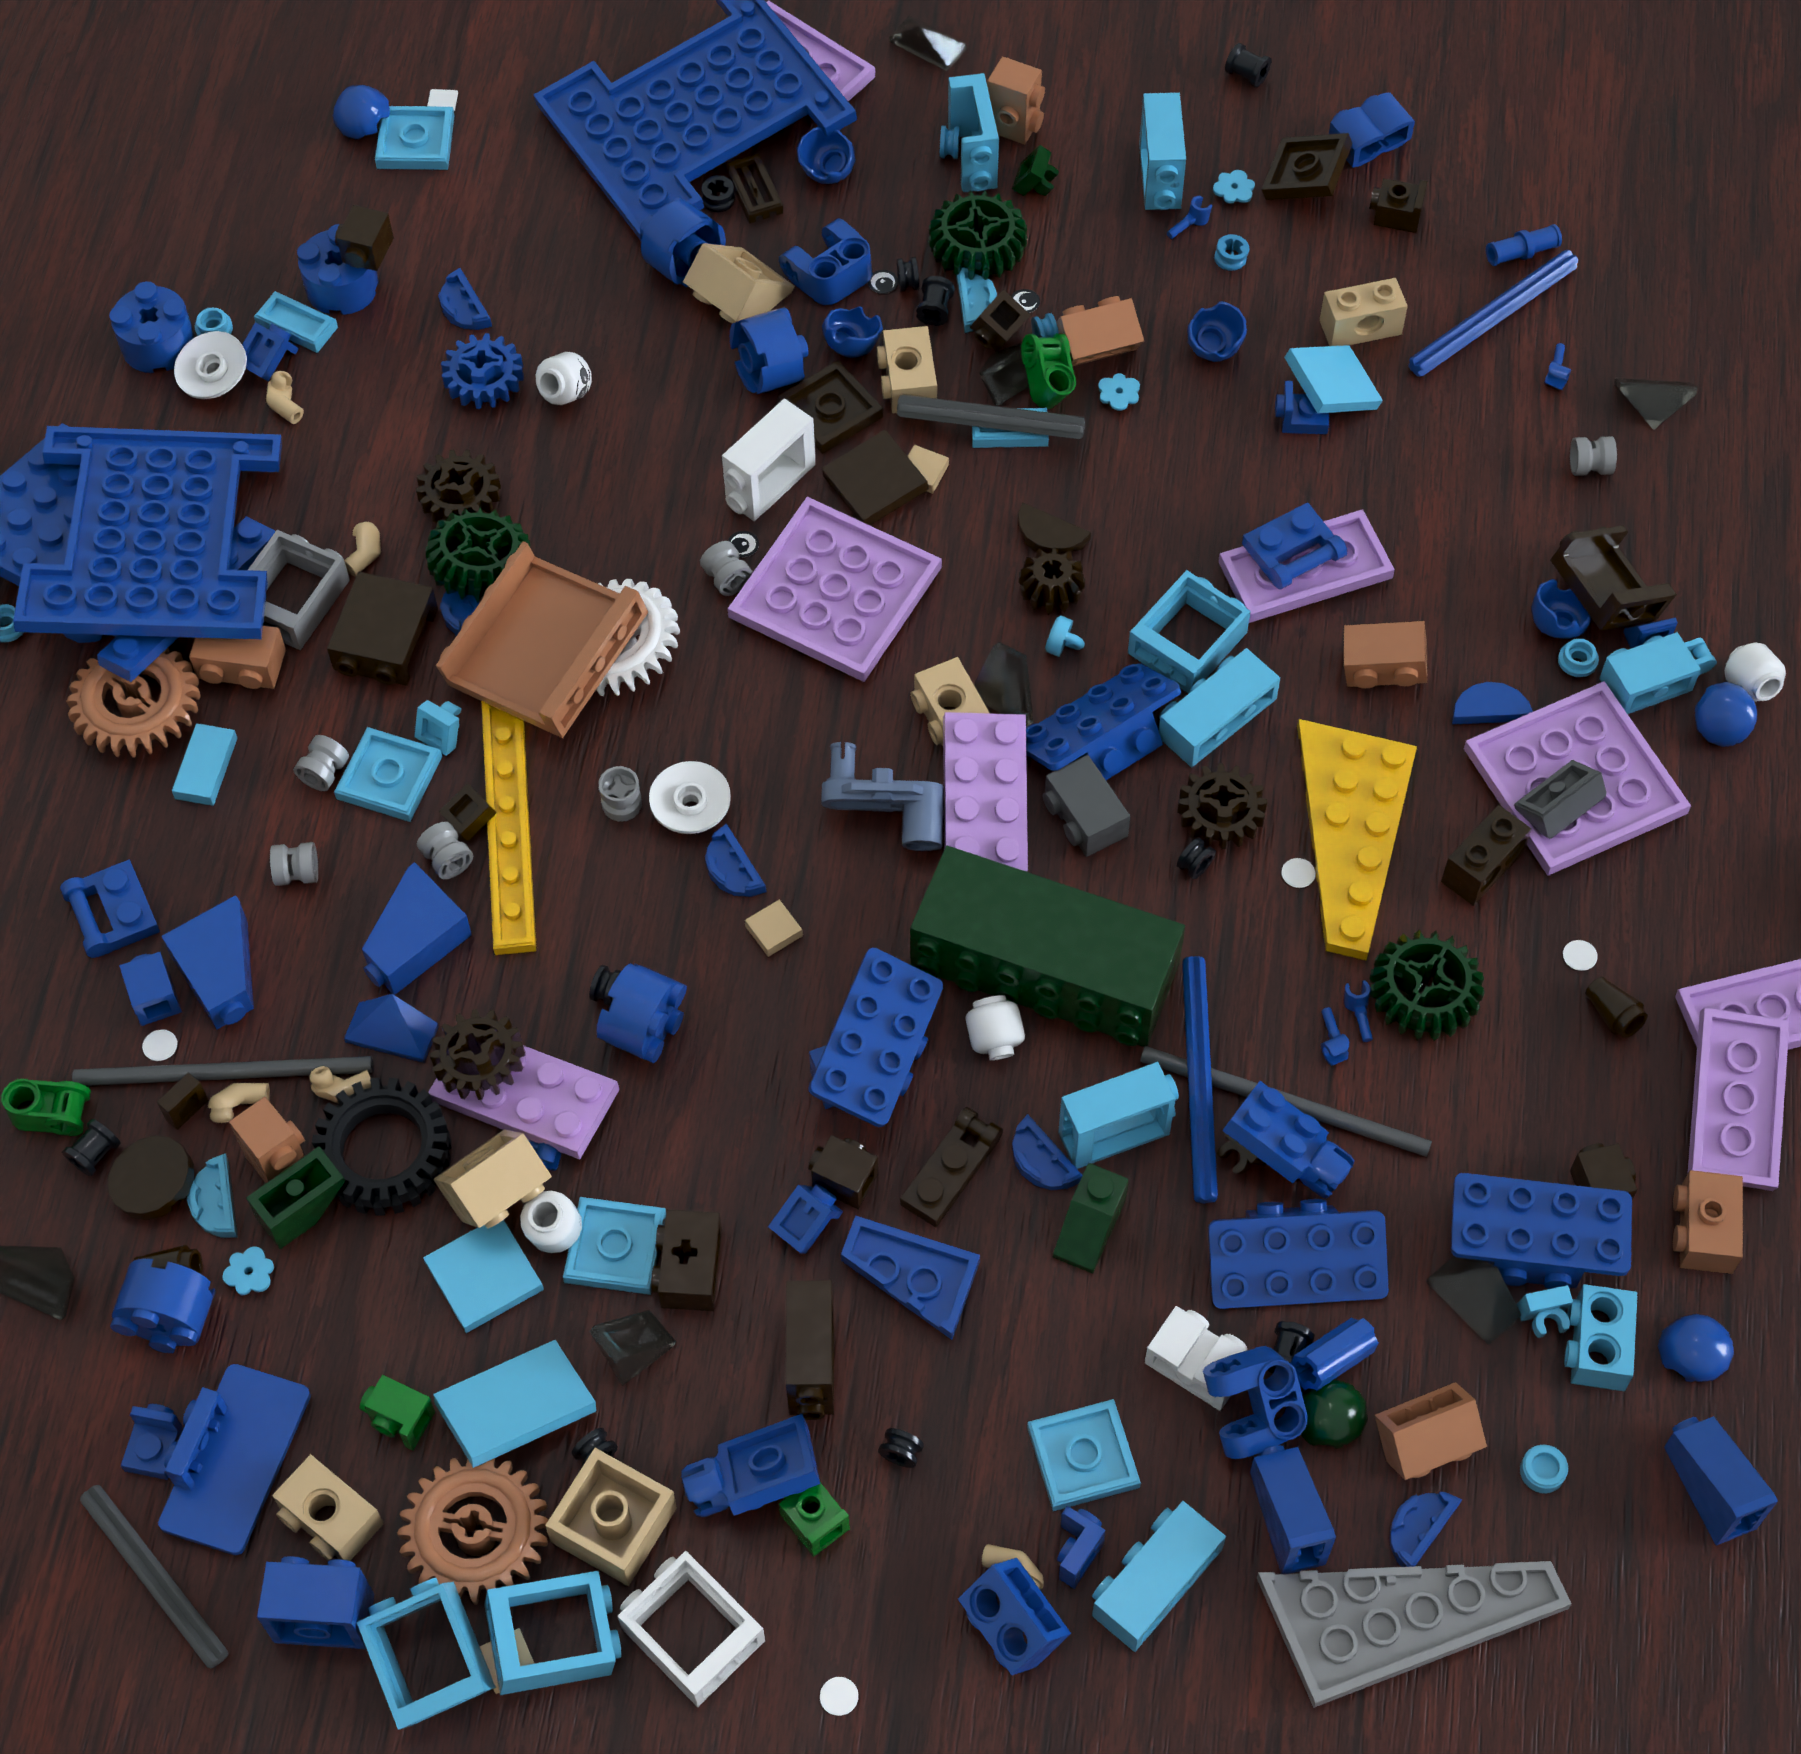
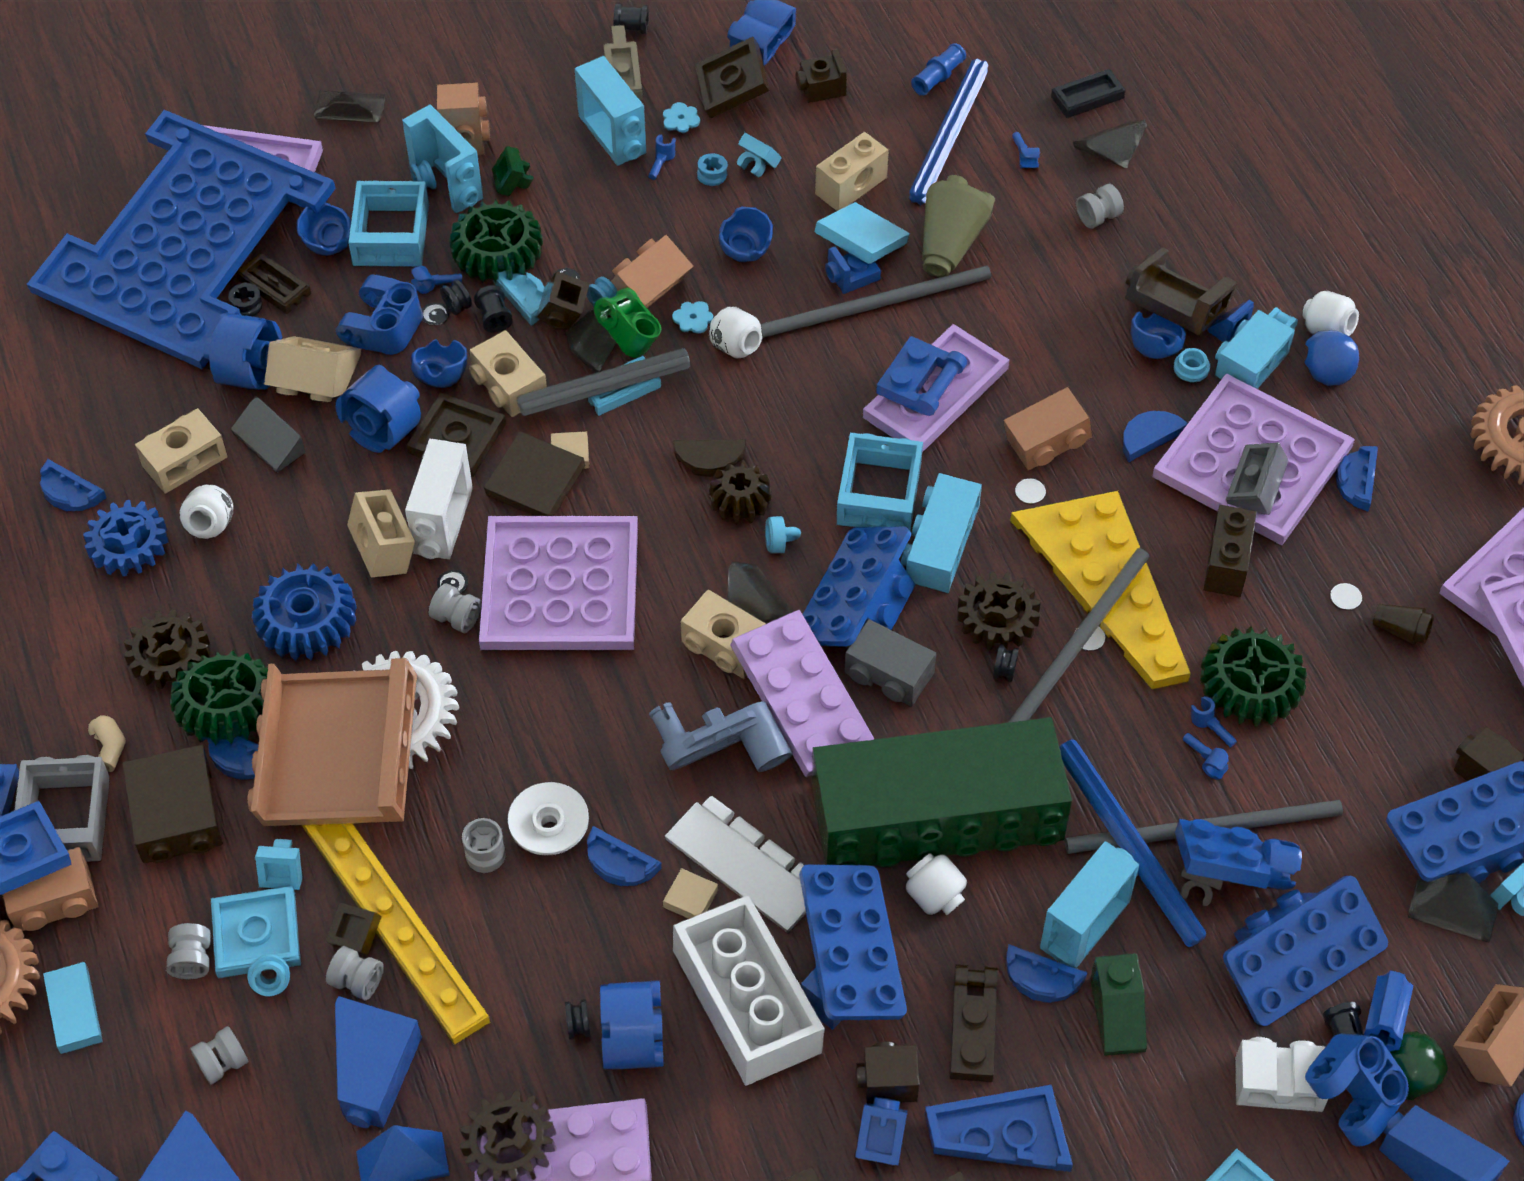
camera: 30 degrees left, 5 degrees down
(367, 824) = (266, 986): none -> medium azure plate
(571, 512) = (327, 618): none -> blue gear
(576, 311) = (181, 450): none -> tan brick
(661, 332) = (268, 435): none -> dark grey slope
(700, 468) = (380, 533): none -> tan brick
(763, 1033) = (747, 990): none -> white brick
(837, 913) = (737, 862): none -> white windscreen
(876, 200) = (388, 248): none -> medium azure window
(890, 247) = (425, 282): none -> blue hand
(1146, 424) = (735, 332): none -> white head
(1209, 110) = (624, 59): none -> dark tan hinge
(1282, 867) = (1080, 636): none -> dark grey piece
(1284, 255) = (757, 152): none -> medium azure tile
(1305, 453) = (875, 301): none -> dark grey piece
(1335, 707) = (1030, 490): none -> white sticker
(1425, 409) = (952, 223): none -> olive cone
(1665, 334) = (1088, 93): none -> black tile
(1673, 843) = (1356, 477): none -> blue tile

